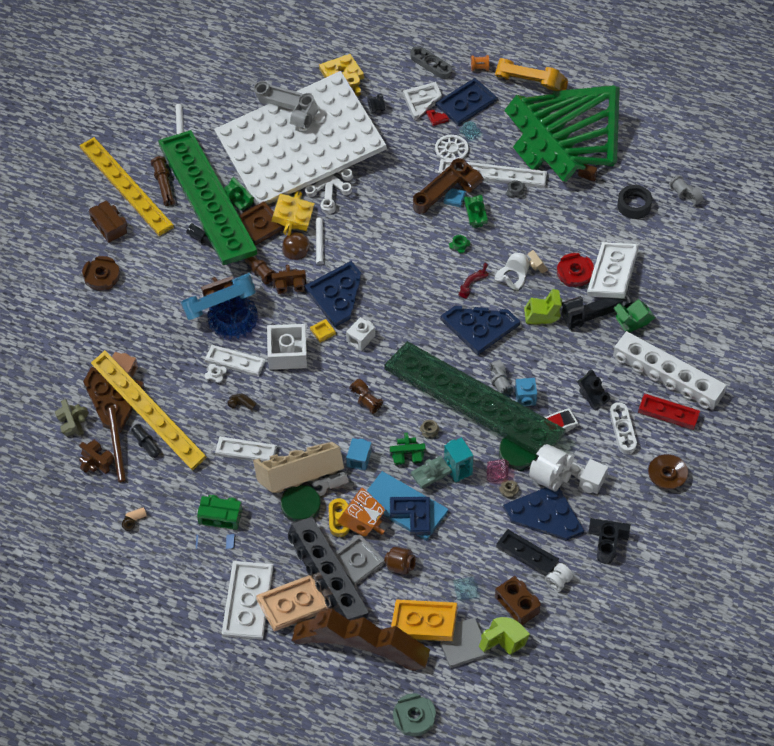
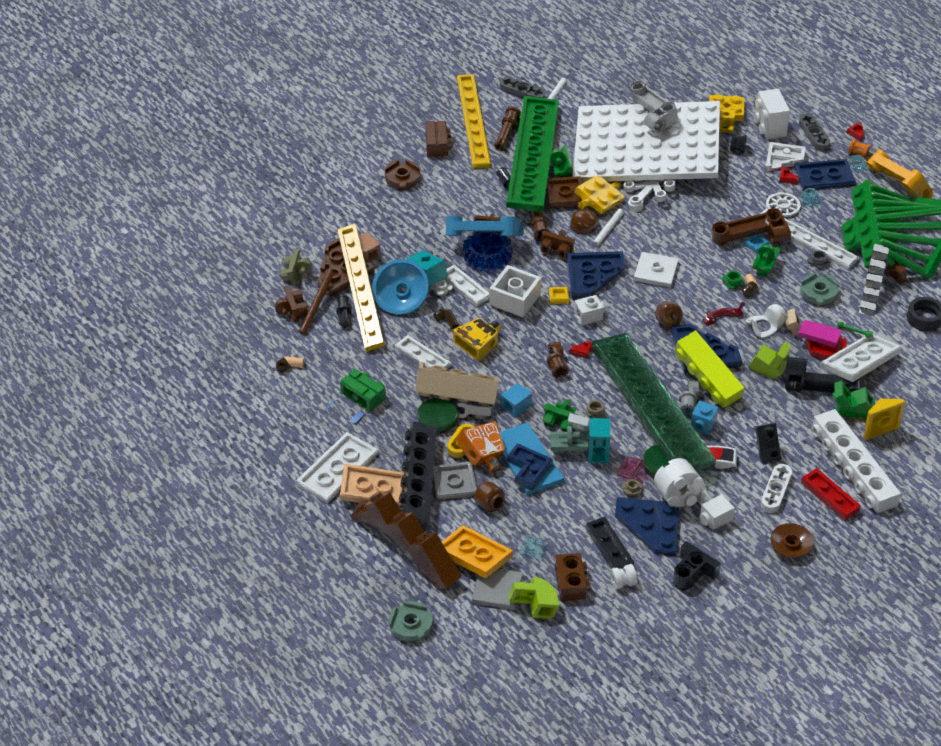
camera: 30 degrees right, 10 degrees down
(162, 128) = (513, 86): none -> dark grey beam
(181, 378) = (396, 276): none -> dark azure dish
(193, 361) = (433, 266): none -> teal brick
(283, 409) = (477, 337): none -> yellow torso
(378, 374) = (581, 350): none -> red tile
(388, 264) = (656, 269): none -> white plate
(389, 62) = (771, 114): none -> white brick
(431, 305) = (668, 314): none -> reddish brown head
(432, 451) = (578, 422): none -> white plate
(464, 45) = (856, 131): none -> red tile
(478, 241) = (751, 285): none -> dark brown arm
(485, 77) = (857, 162): none -> clear light blue plate
(501, 344) = (709, 369): none -> neon yellow brick
(535, 227) = (819, 297): none -> sand green plate
(566, 263) = (819, 333): none -> dark pink tile
(579, 190) = (874, 279): none -> sticker
(603, 244) = (869, 334): none -> green hinge
(669, 319) = (883, 417): none -> yellow slope

